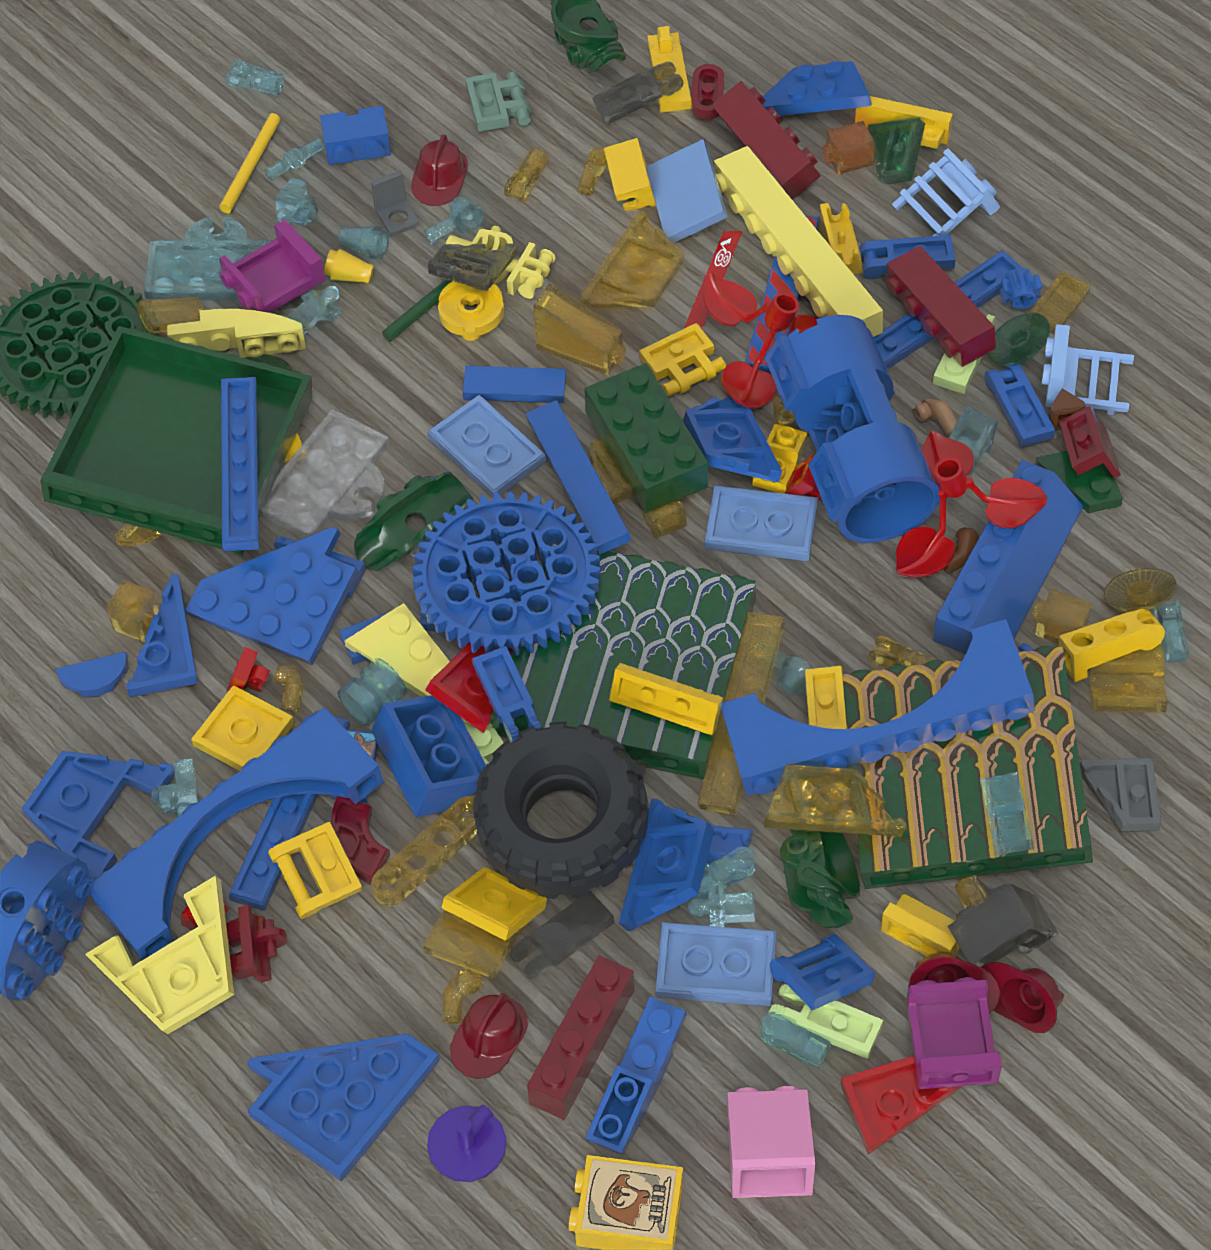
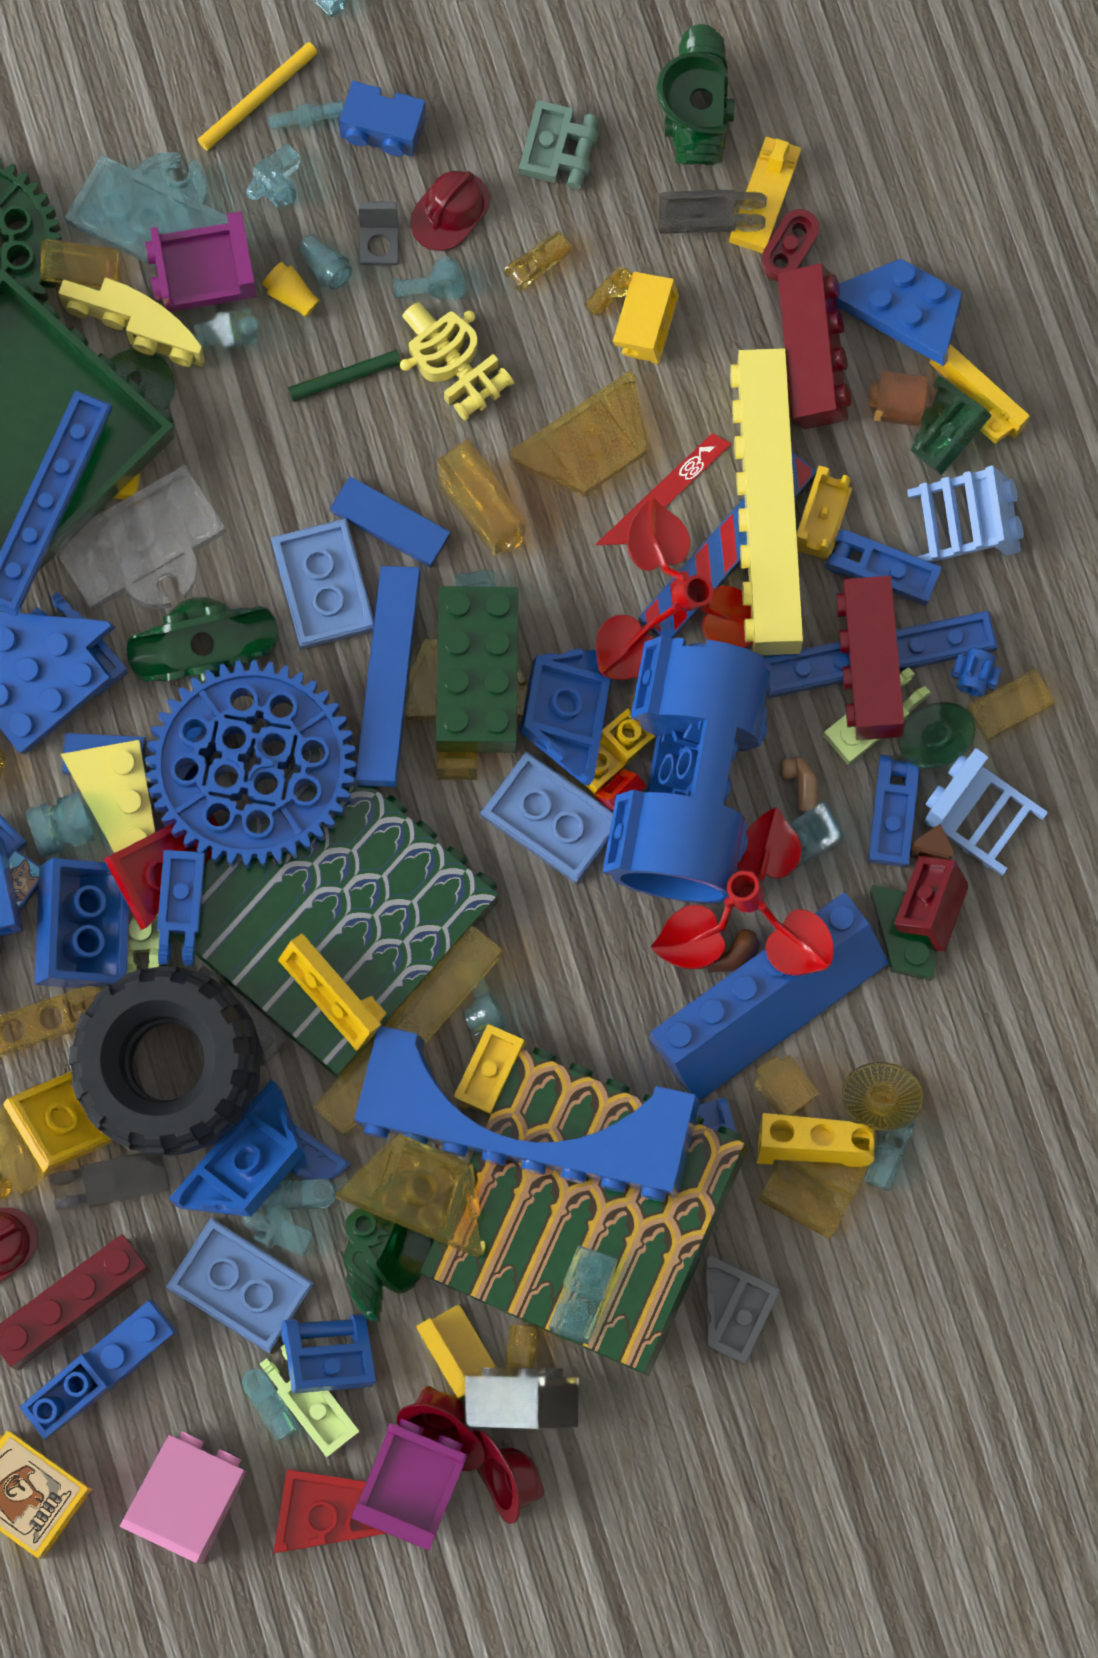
camera: 20 degrees right, 20 degrees up
(471, 264) = (414, 357): clear smoke wing -> none
(475, 322) = (373, 394): yellow plate -> none
(679, 351) = (575, 569): yellow plate -> none
(686, 191) = (693, 370): medium blue tile -> none
(905, 655) = (607, 1053): clear yellow bar -> none

